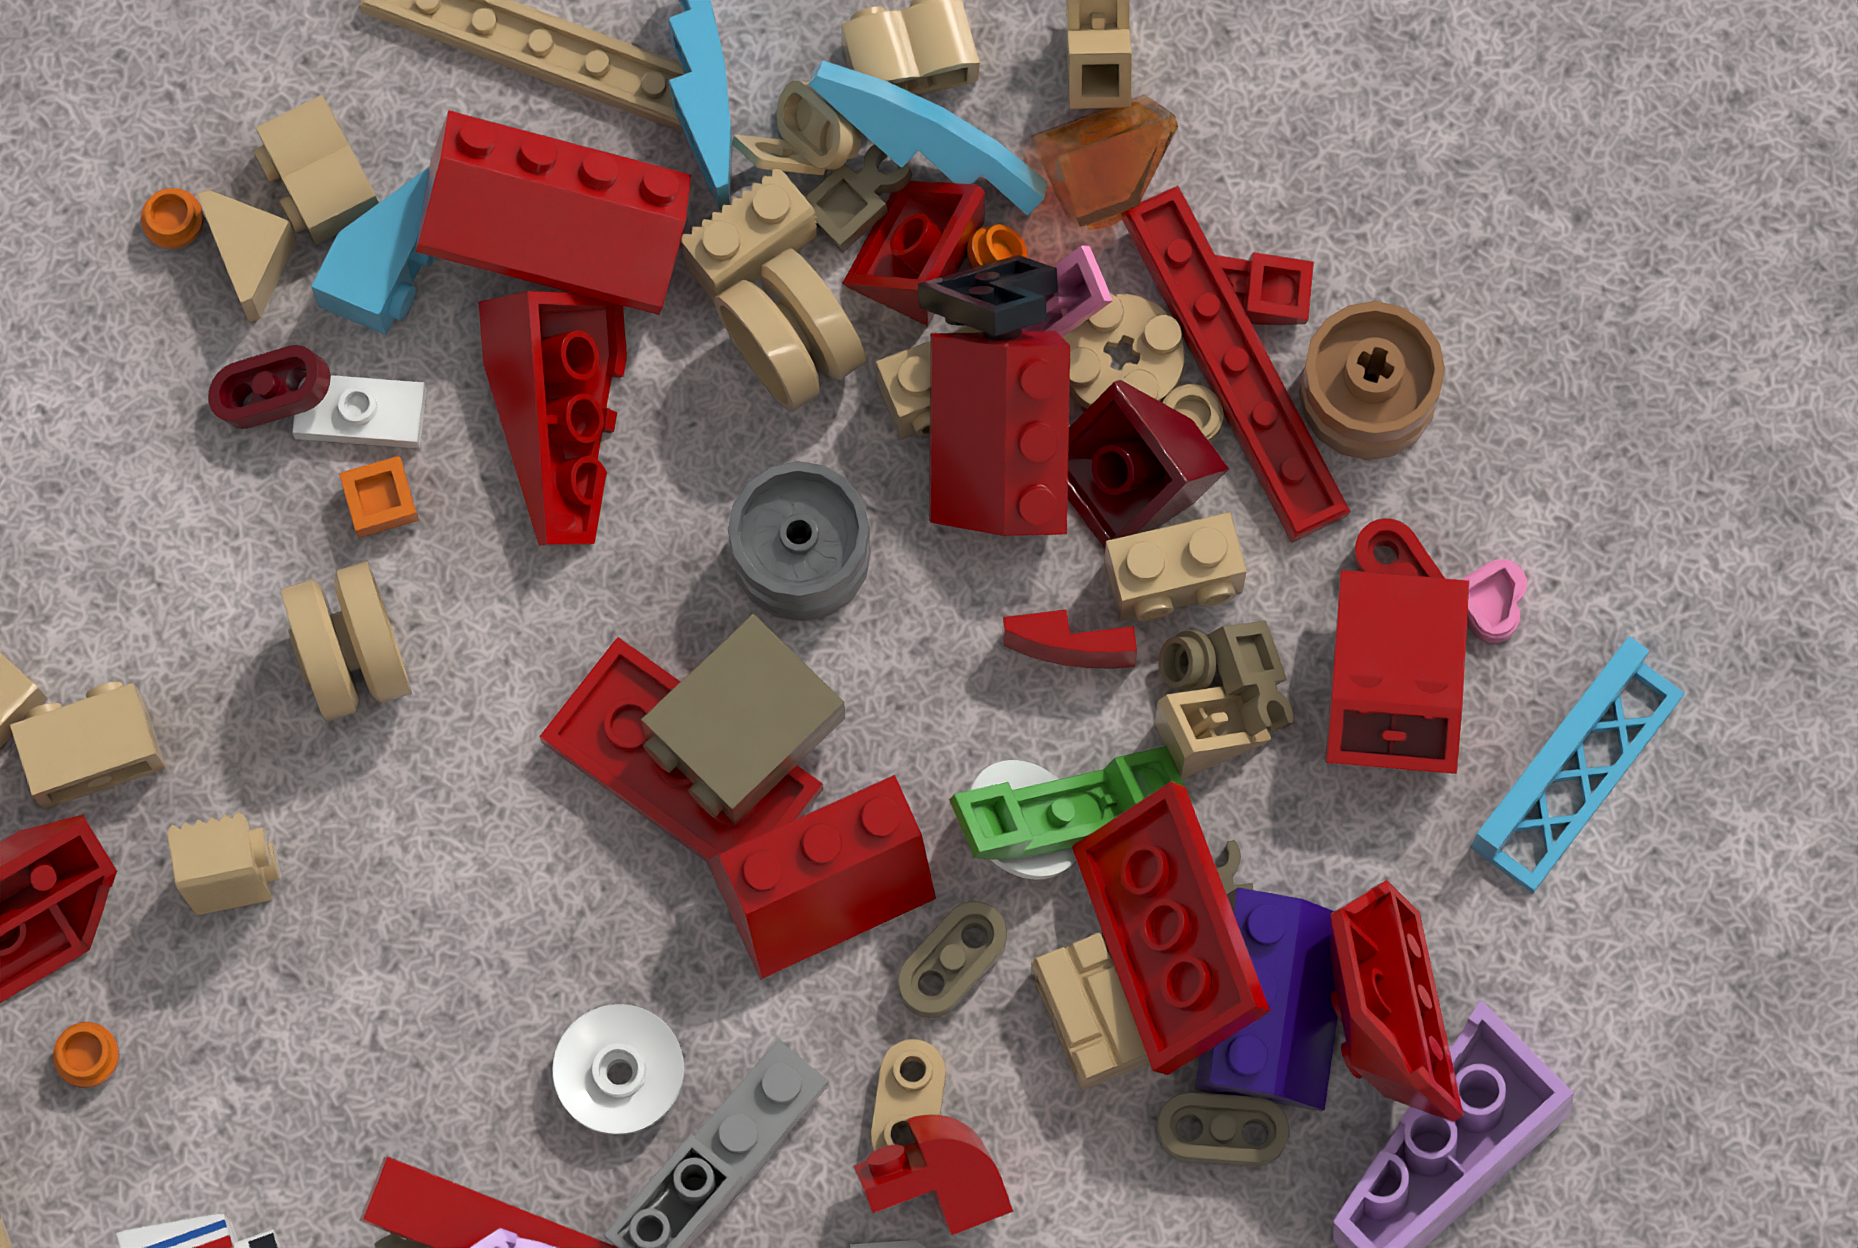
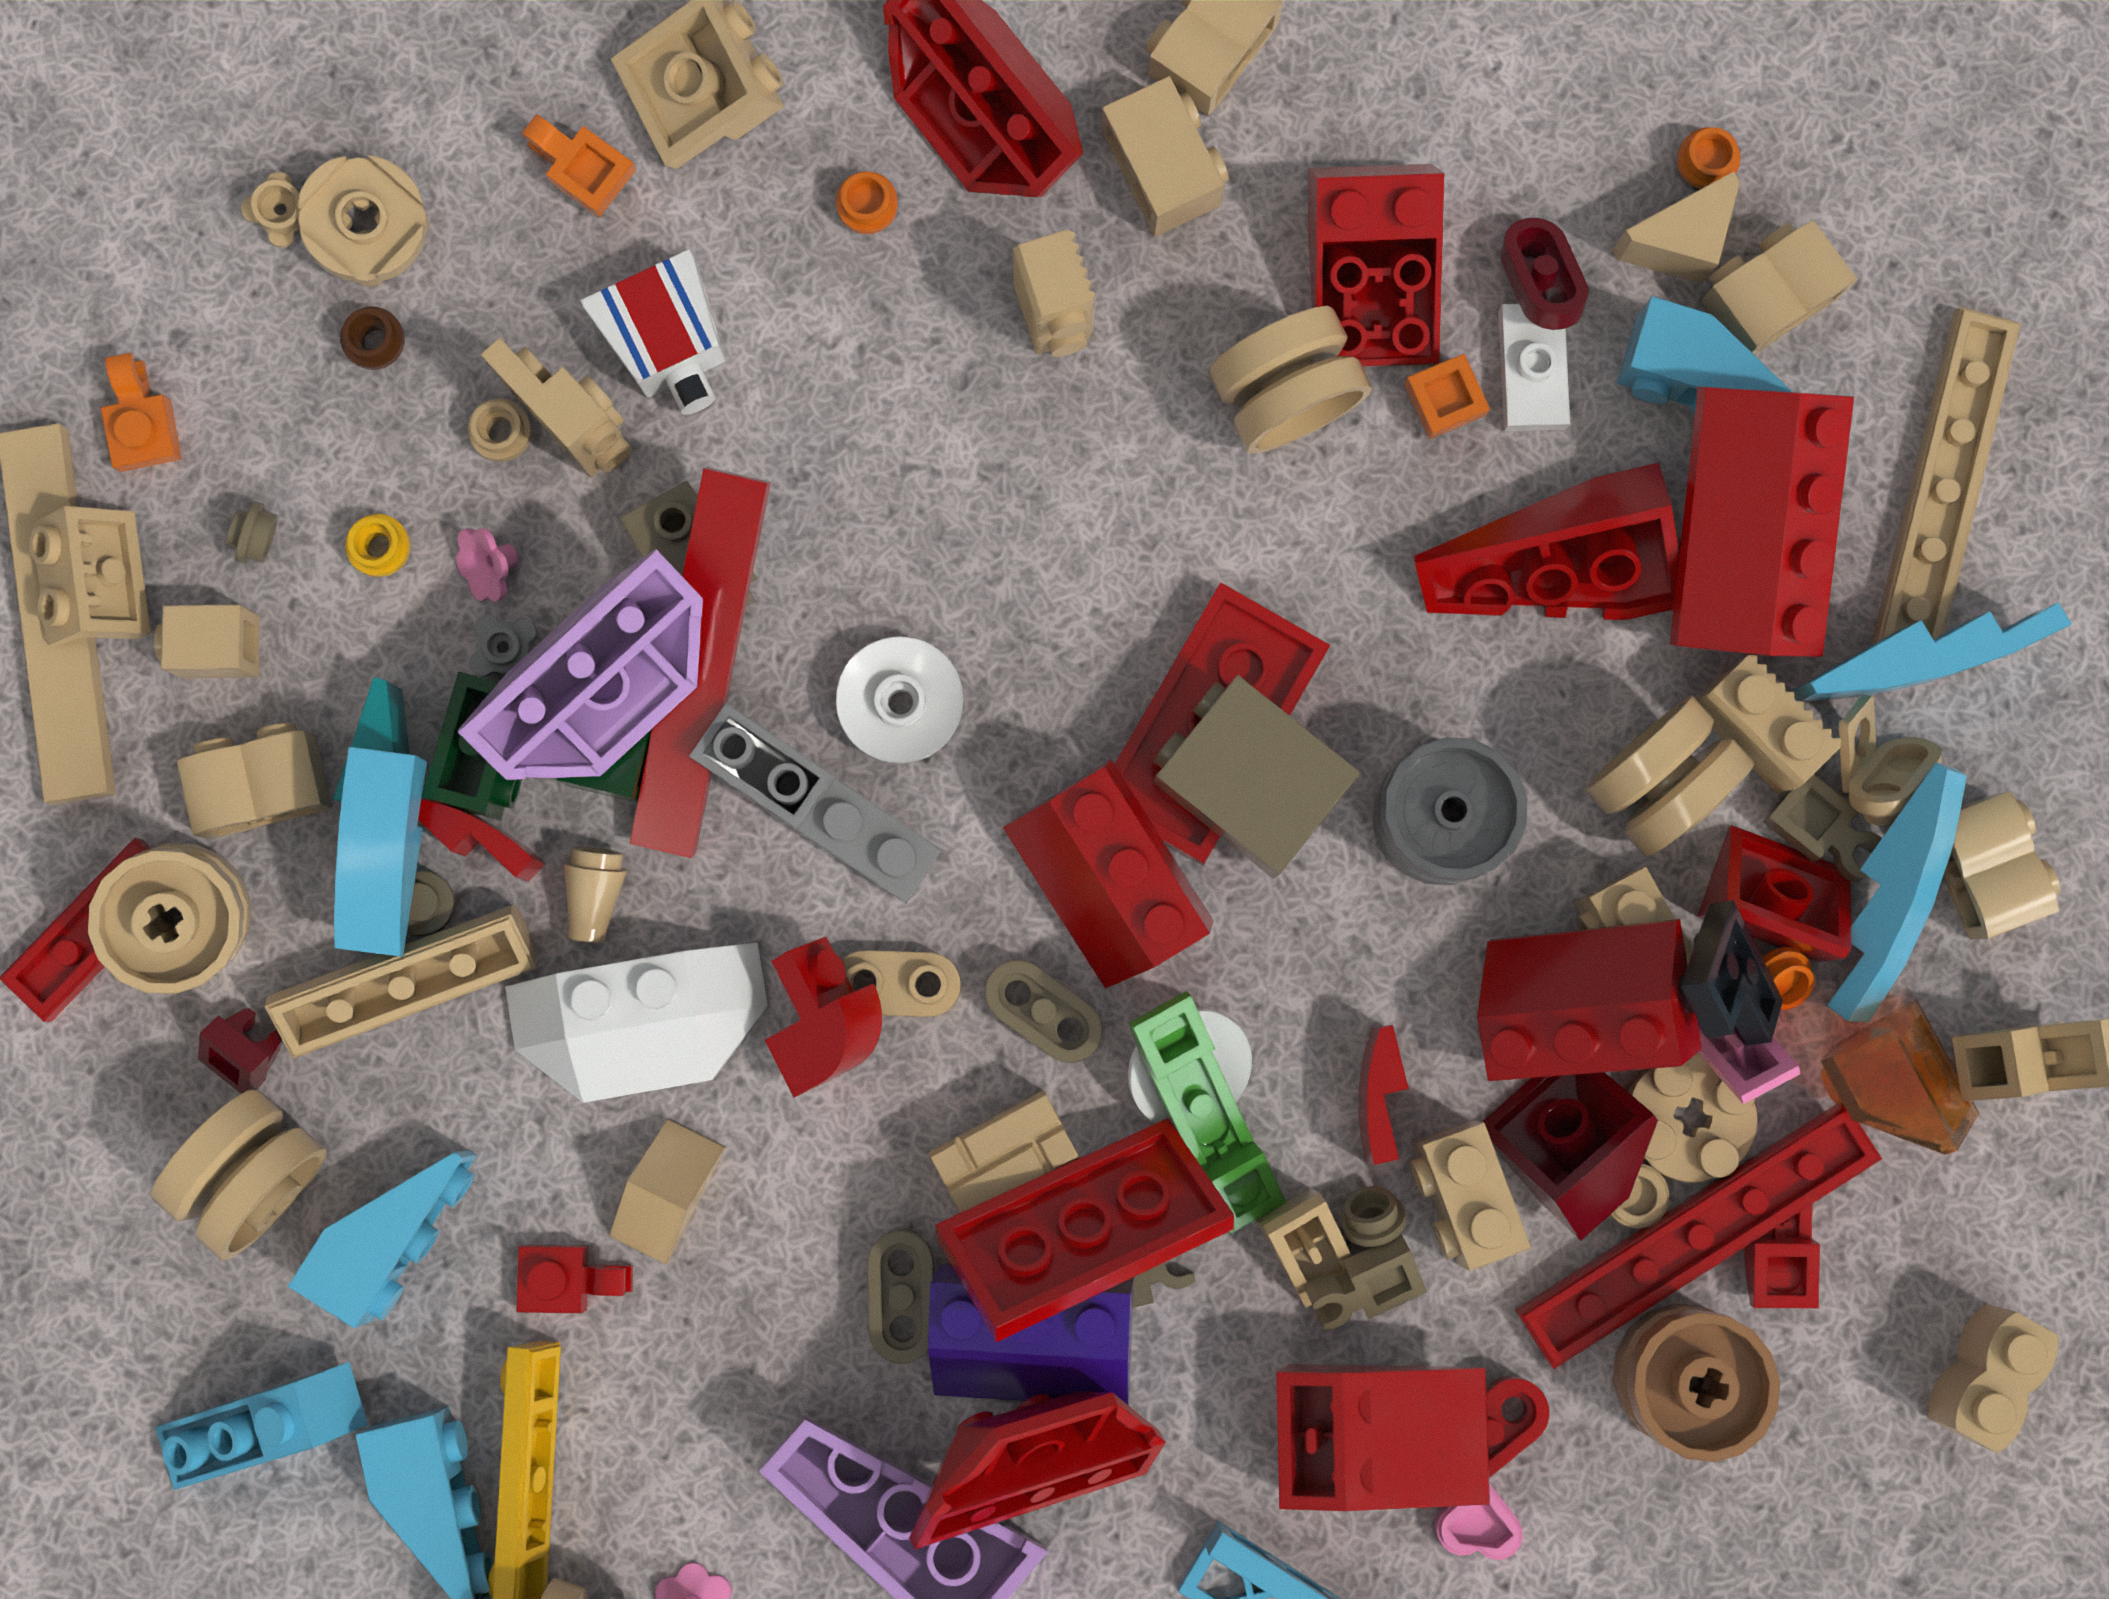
camera: 80 degrees right, 10 degrees up
(225, 545) = (1379, 258): none -> red slope
(1379, 109) = (1997, 1367): none -> tan brick

